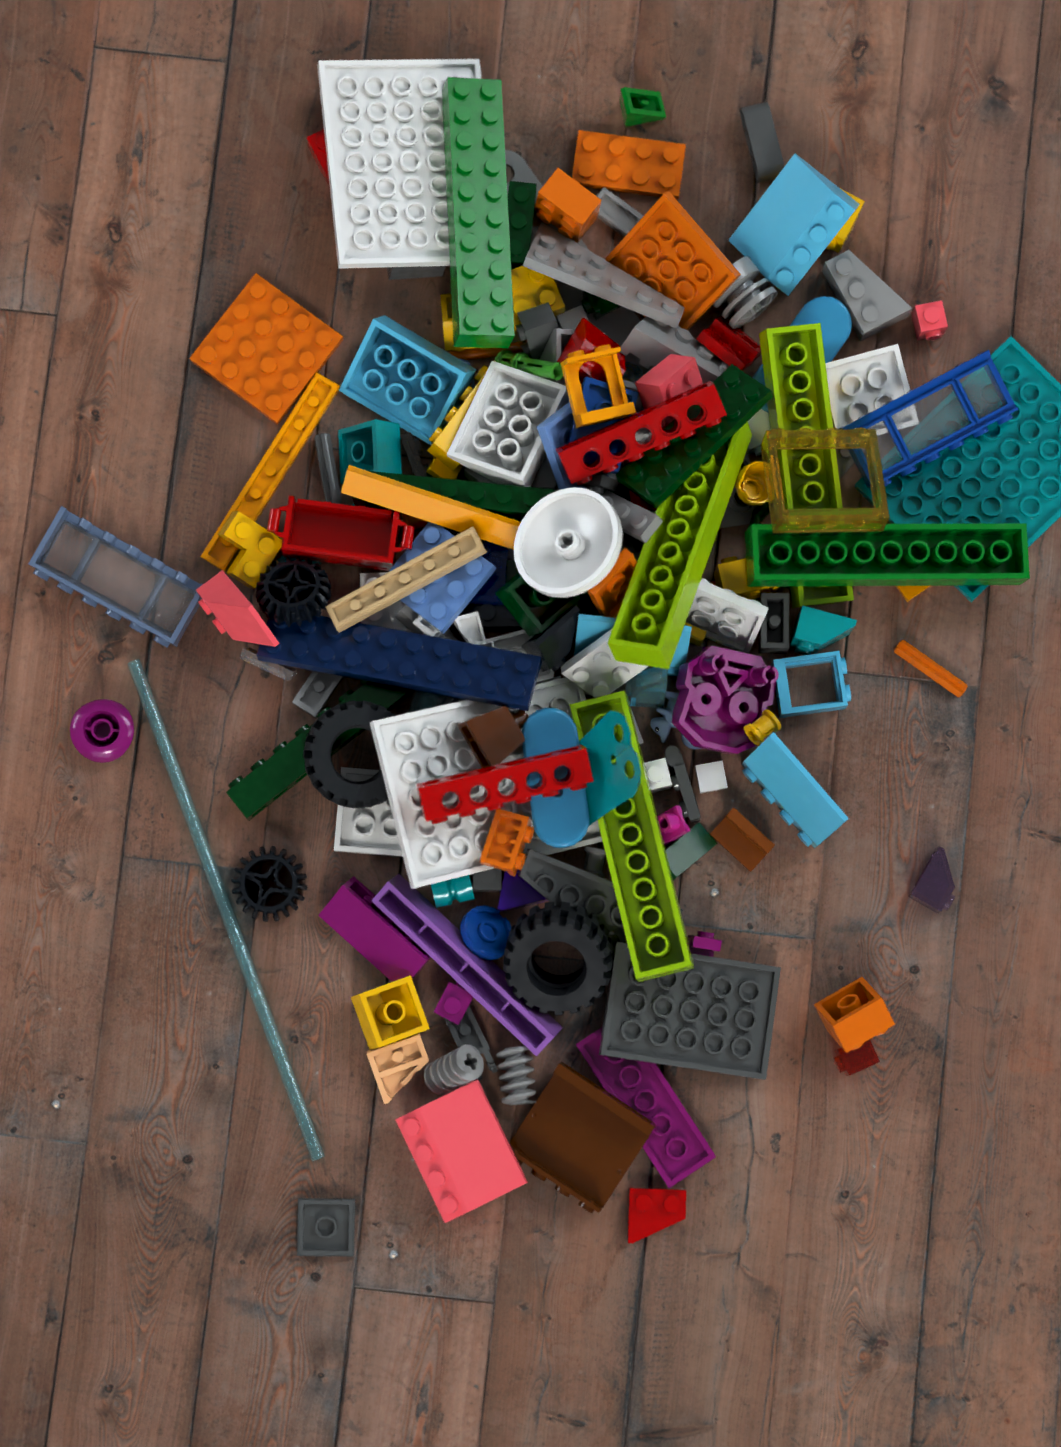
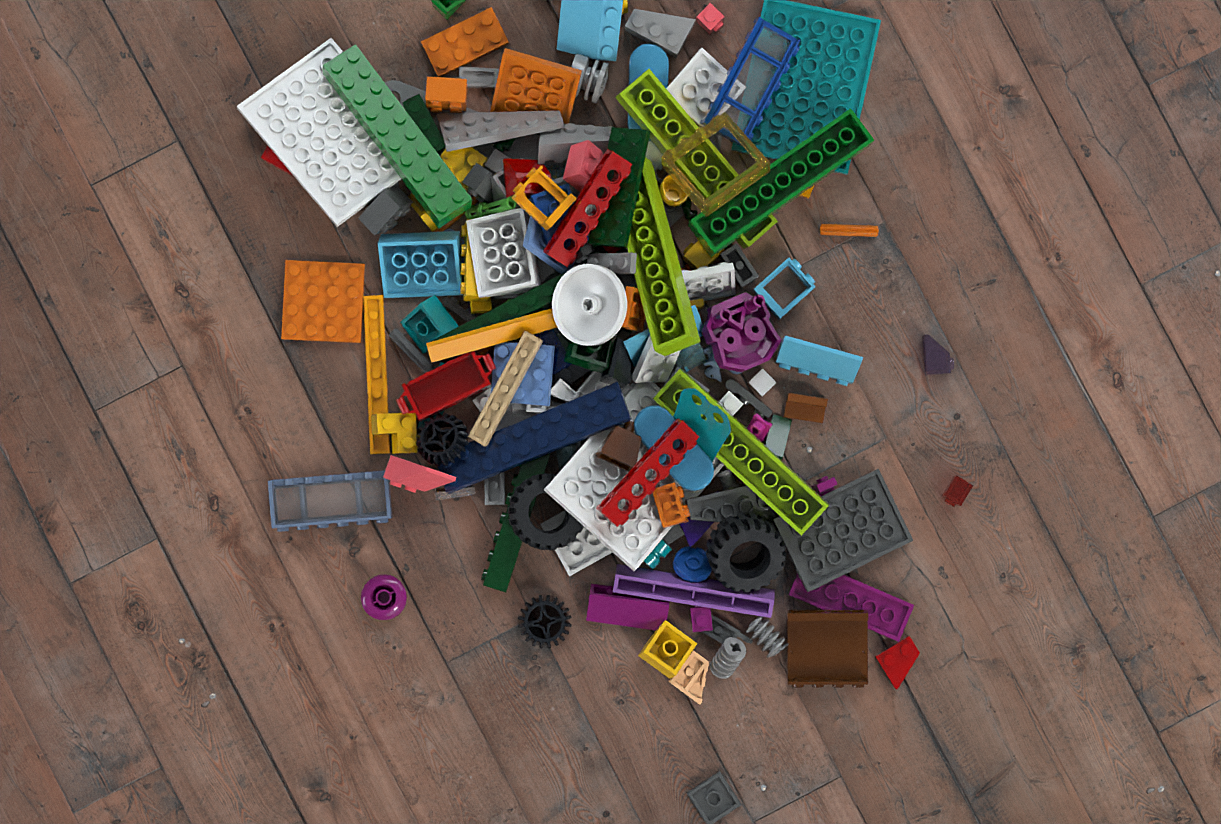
camera: 30 degrees left, 5 degrees up
(226, 910) = (528, 653): clear light blue piece -> none
(408, 289) = (385, 210): none -> dark grey brick
(461, 1151) = (764, 702): coral slope -> none
(730, 344) = (600, 114): red slope -> none
(762, 727) = (774, 334): yellow bush -> none
(818, 630) = (766, 254): teal slope -> none
(854, 1014) = (940, 468): orange brick -> none

